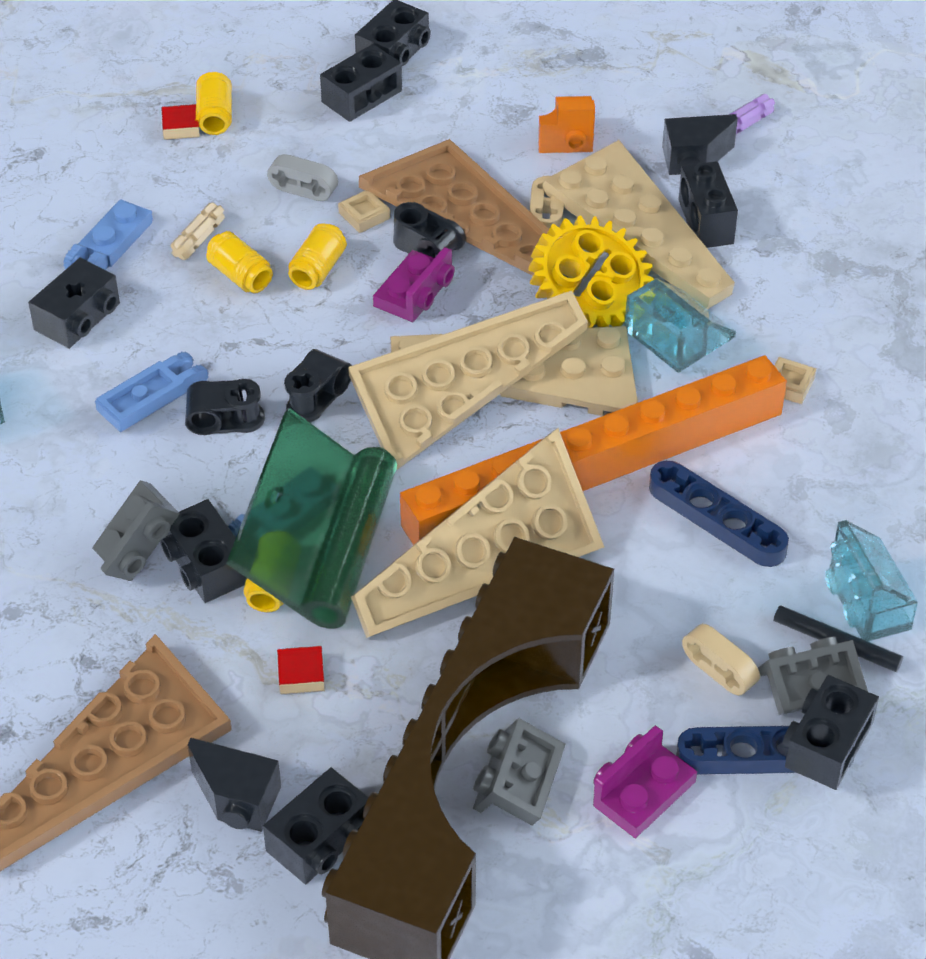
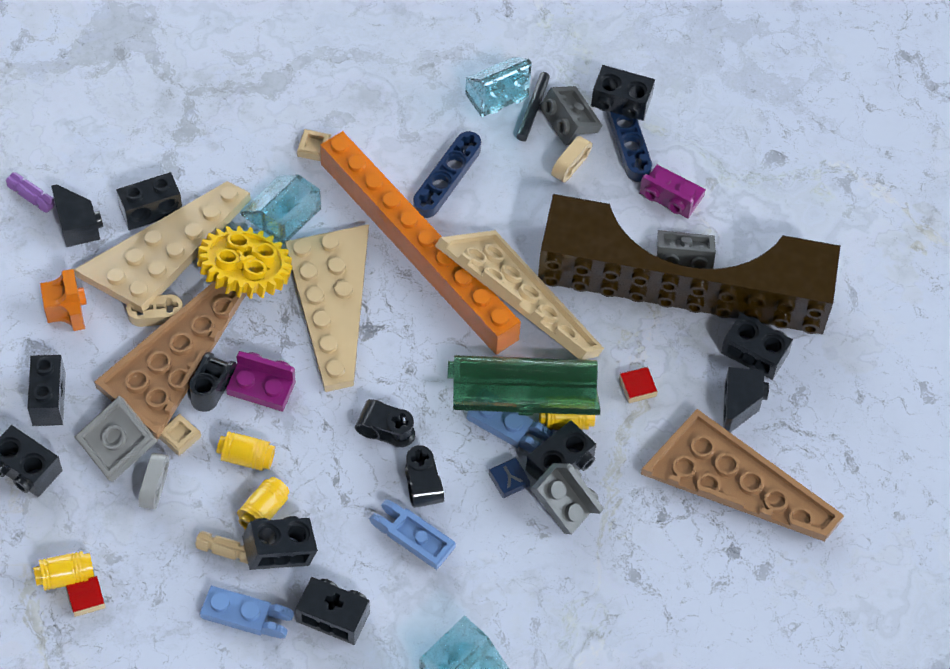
camera: 105 degrees left, 10 degrees up
(172, 260) = (281, 549): none -> black brick
(198, 491) = (509, 477): none -> dark blue tile
(367, 150) = (115, 438): none -> light grey tile
(441, 382) = (366, 332): tan wing -> none
(447, 101) = (46, 390): none -> black brick

